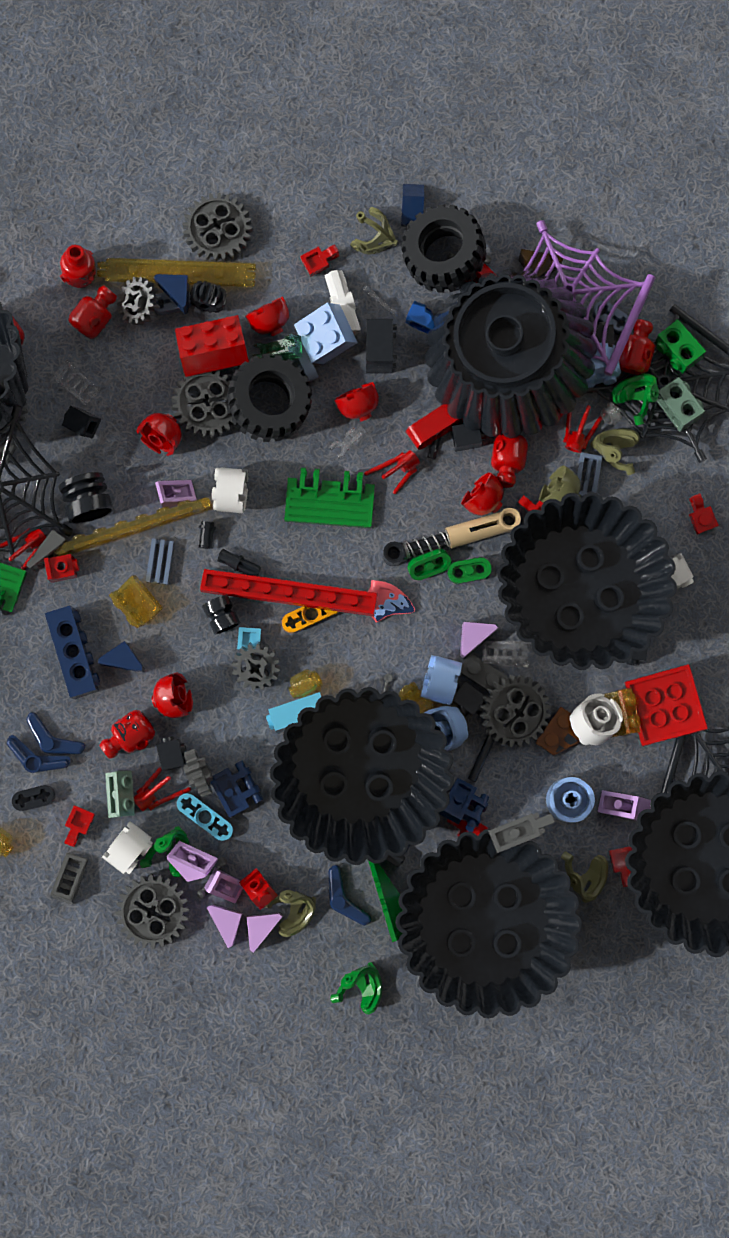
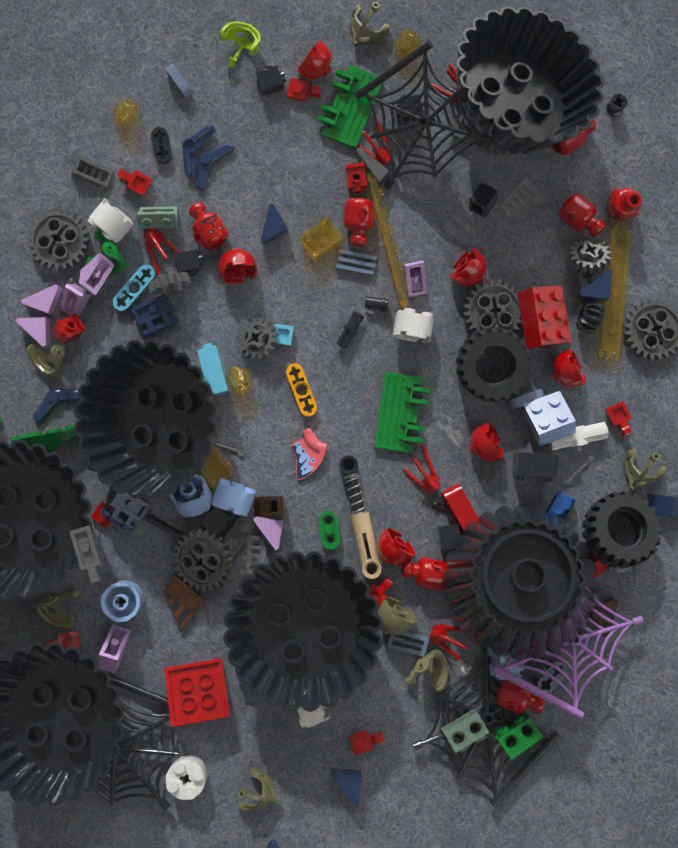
camera: 100 degrees right, 5 degrees up
(57, 621) = (272, 179): dark blue brick -> none
(86, 497) = (415, 200): black wheel -> none
(109, 561) = (358, 218): none -> red piece
(221, 614) = (305, 311): black wheel -> none
(287, 348) = (538, 380): clear green hinge -> none
(289, 592) = (320, 371): red plate -> none
(428, 564) = (337, 495): green plate -> none
(447, 639) = (269, 506): none -> dark brown slope
(596, 719) = (188, 629): white brick -> none
(626, 391) = (481, 684): green helmet -> none
(627, 702) = (194, 653): clear yellow bracket -> none

